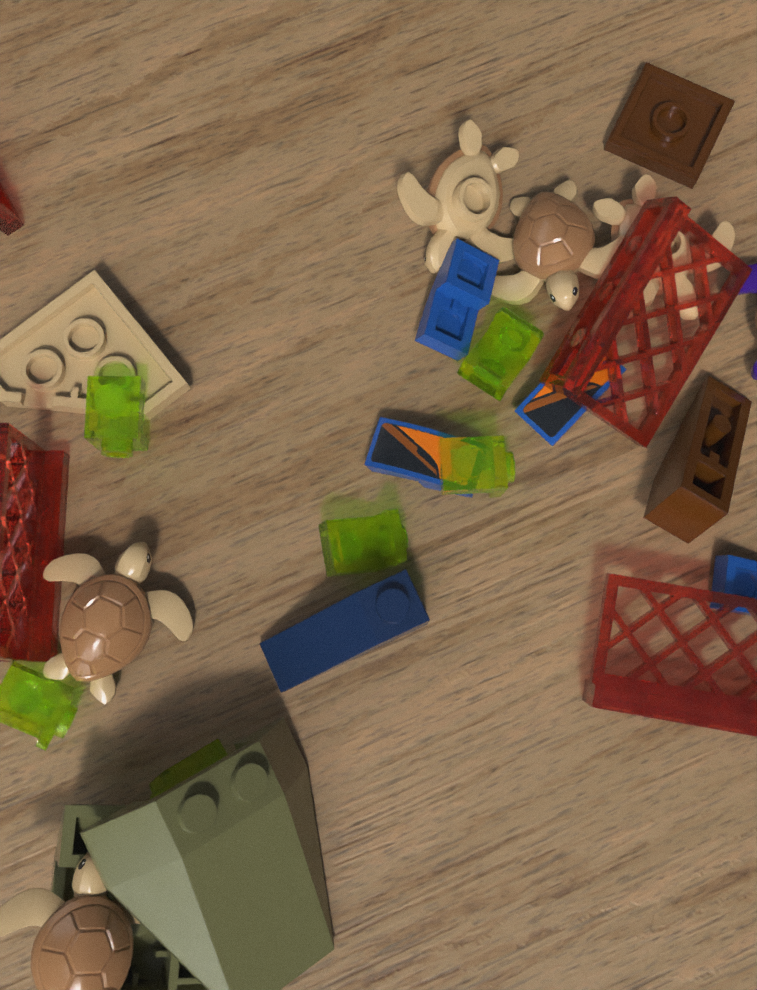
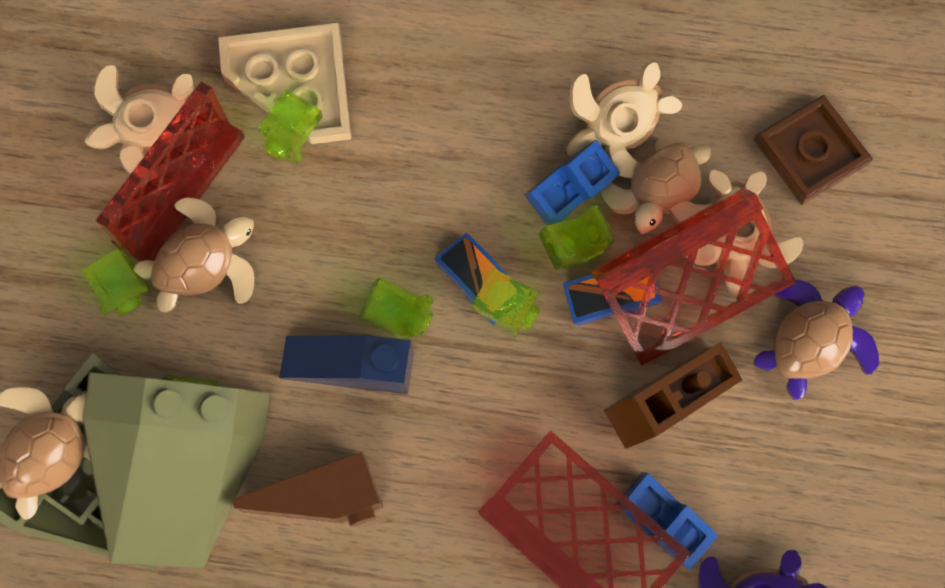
camera: 35 degrees right, 5 degrees down
(416, 789) = (327, 494): none -> reddish brown slope

